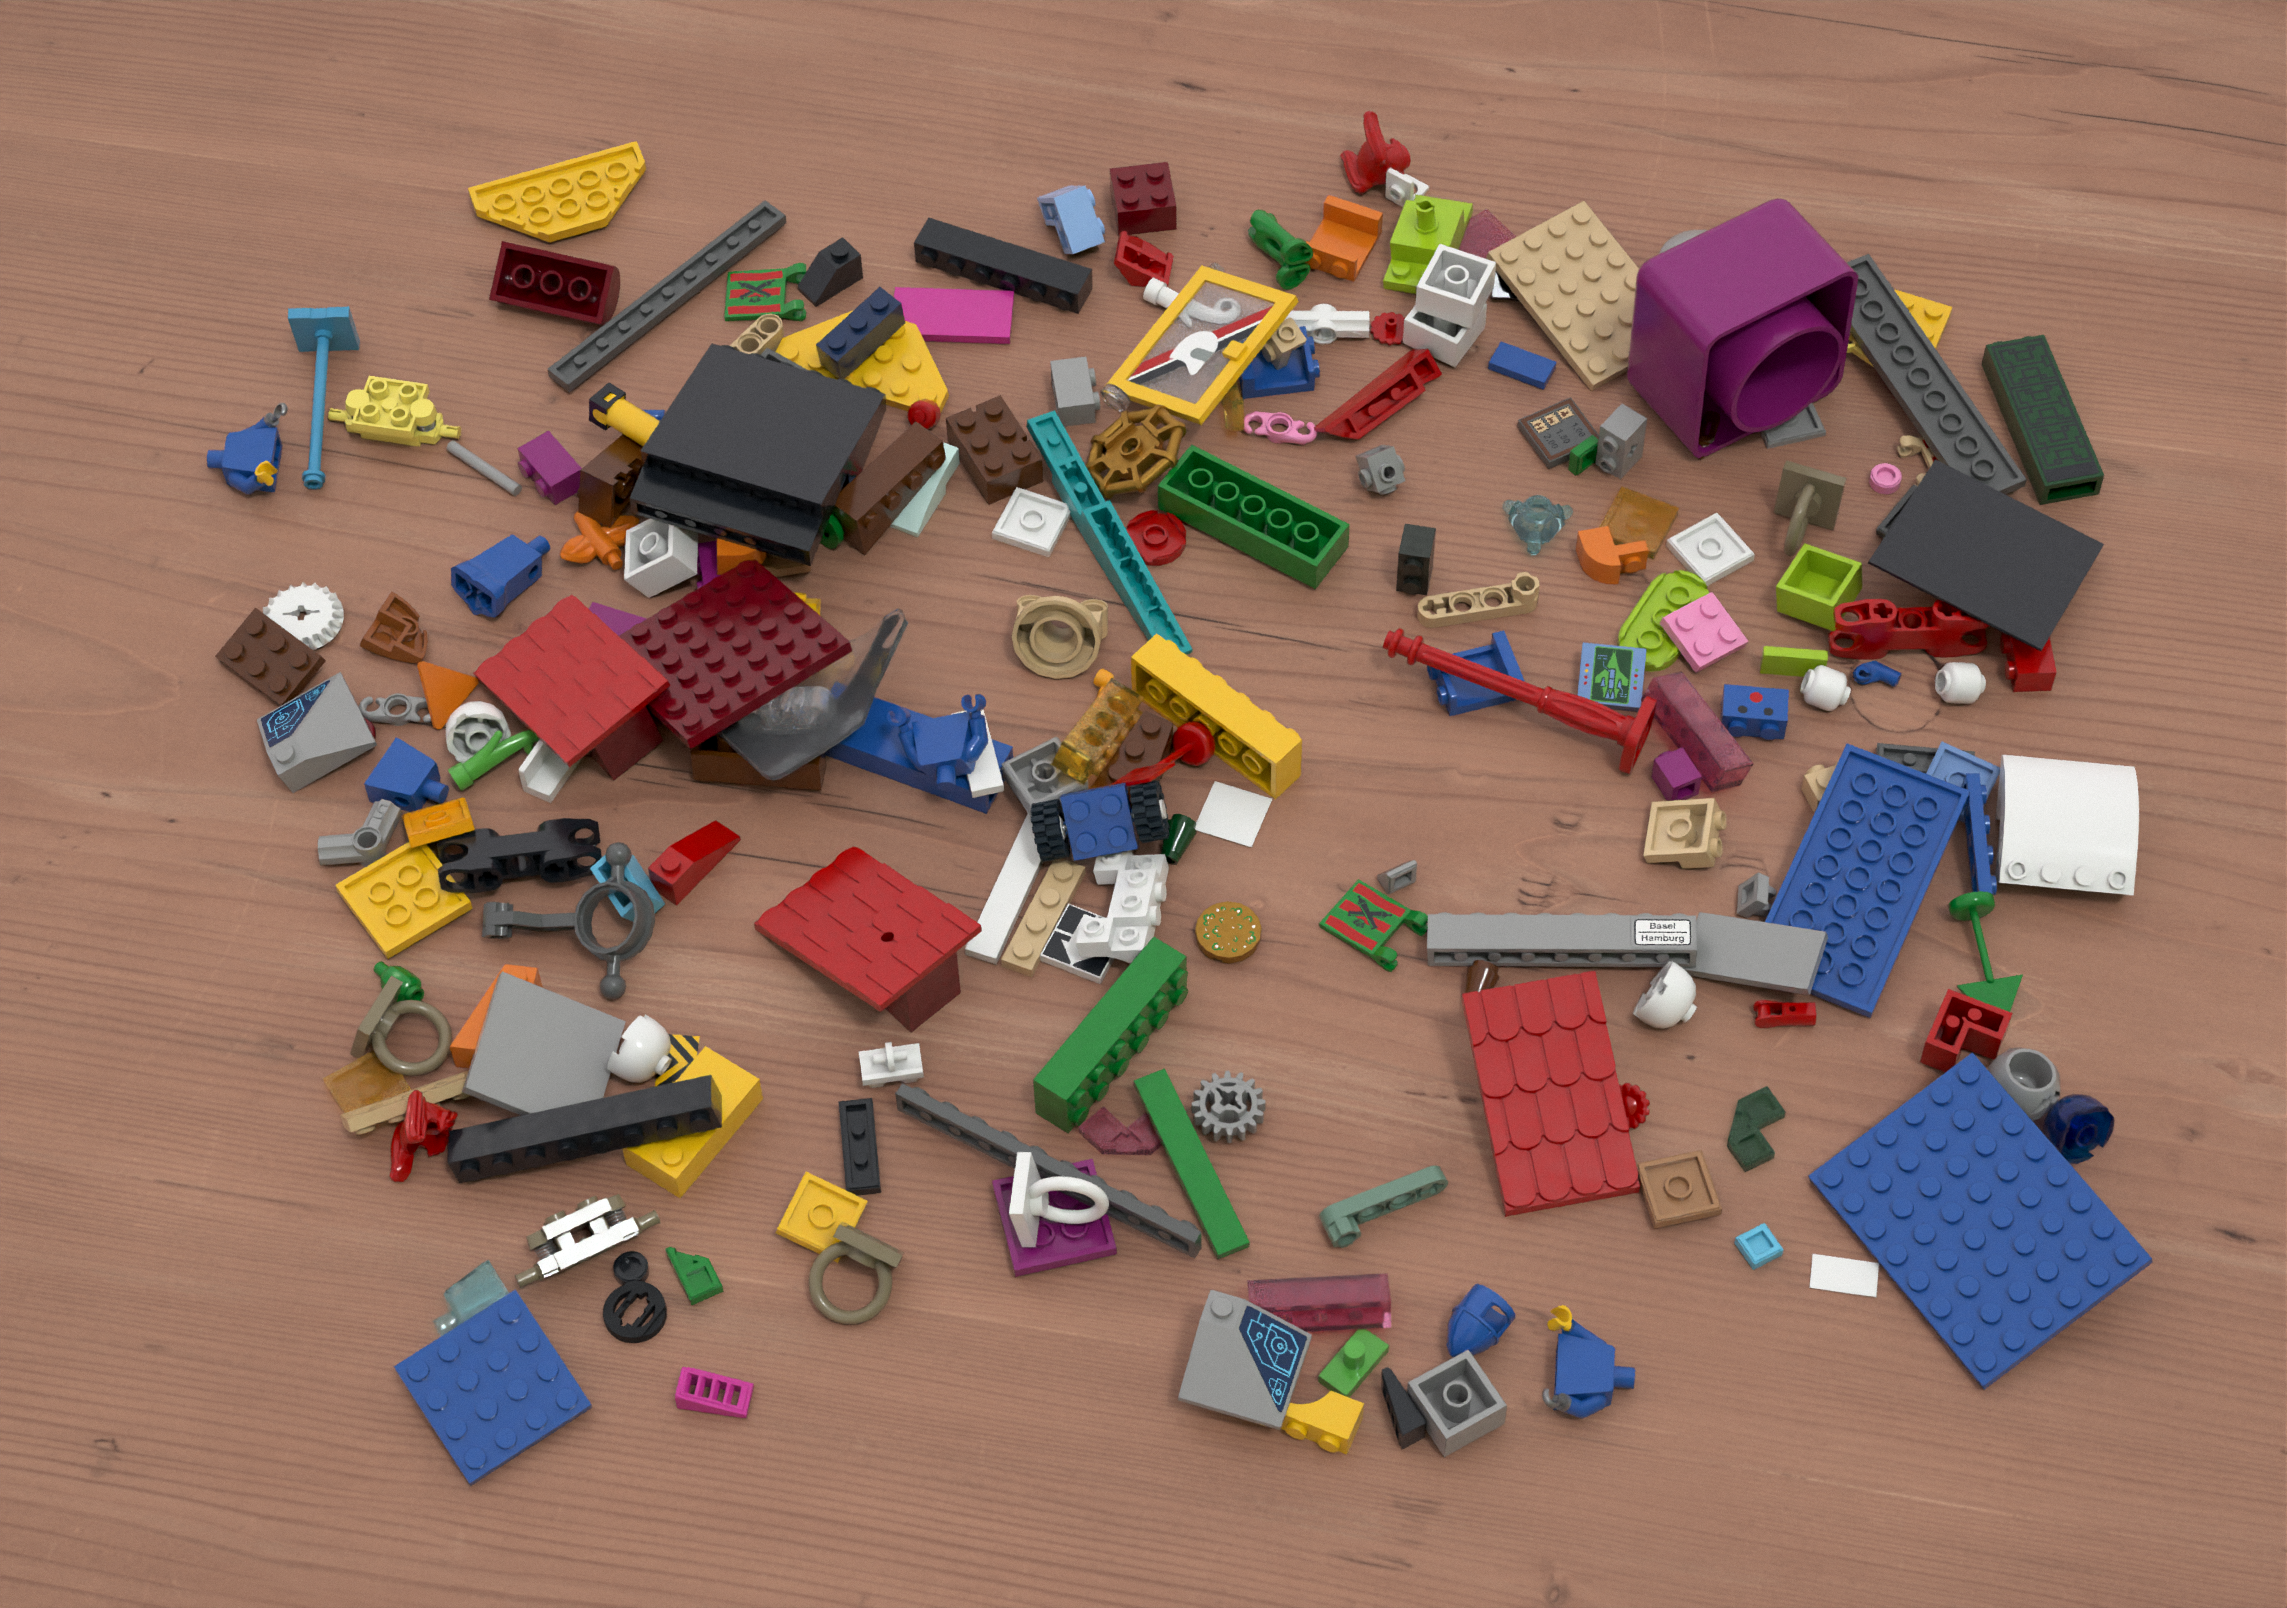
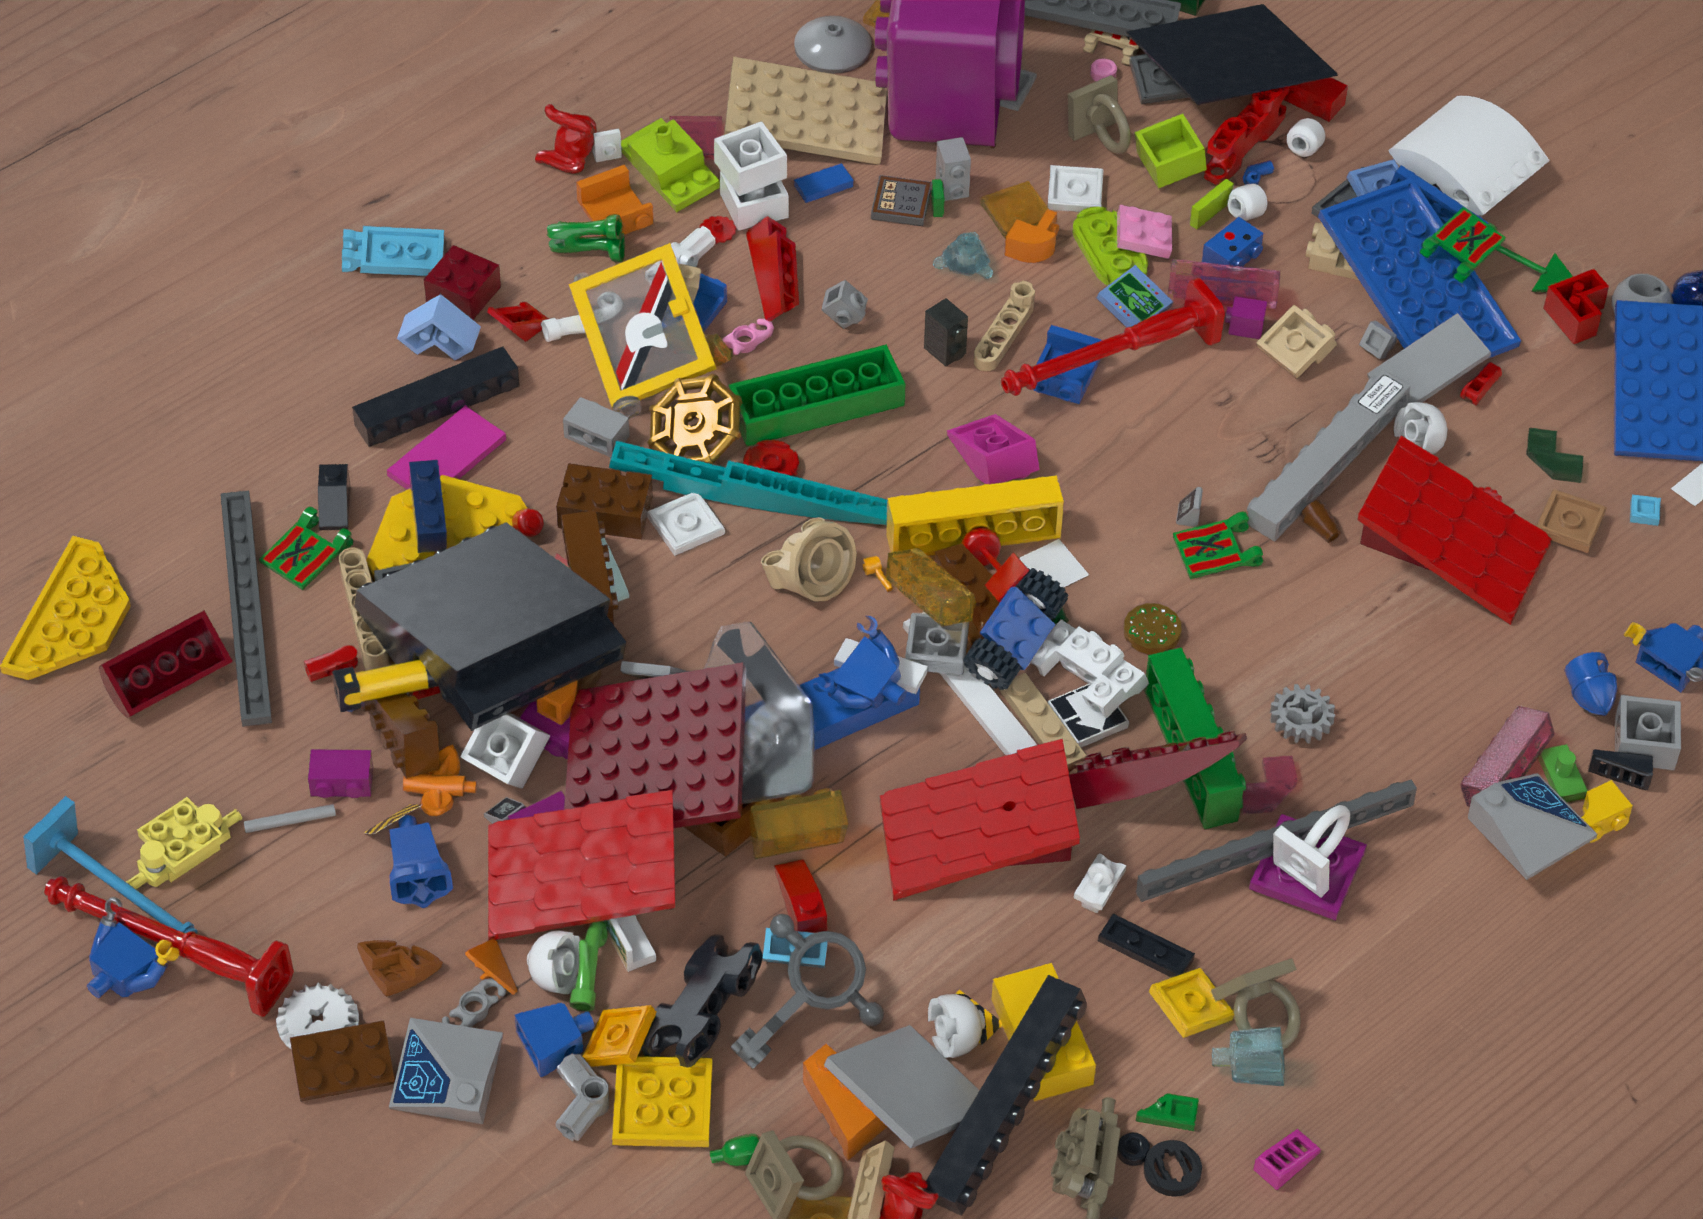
camera: 55 degrees left, 5 degrees down
(302, 551) = (263, 977): none -> red piece
(536, 532) = (391, 819): none -> sticker
(610, 598) = (503, 810): none -> slope
(656, 386) = (323, 665): none -> red bar
(751, 800) = (798, 823): none -> clear yellow slope
(787, 1289) = (1254, 1056): none -> clear light blue torso
(829, 605) = (645, 671): none -> light grey tile
(1023, 1011) = (1145, 770): none -> dark red wedge
(1138, 131) = (392, 250): none -> medium azure tile
(1191, 1164) = (1325, 760): green tile -> none
(1321, 684) = (995, 449): none -> dark pink slope
(1343, 1217) = (1448, 710): sand green beam -> none
(1936, 885) = (1466, 239): none -> green flag

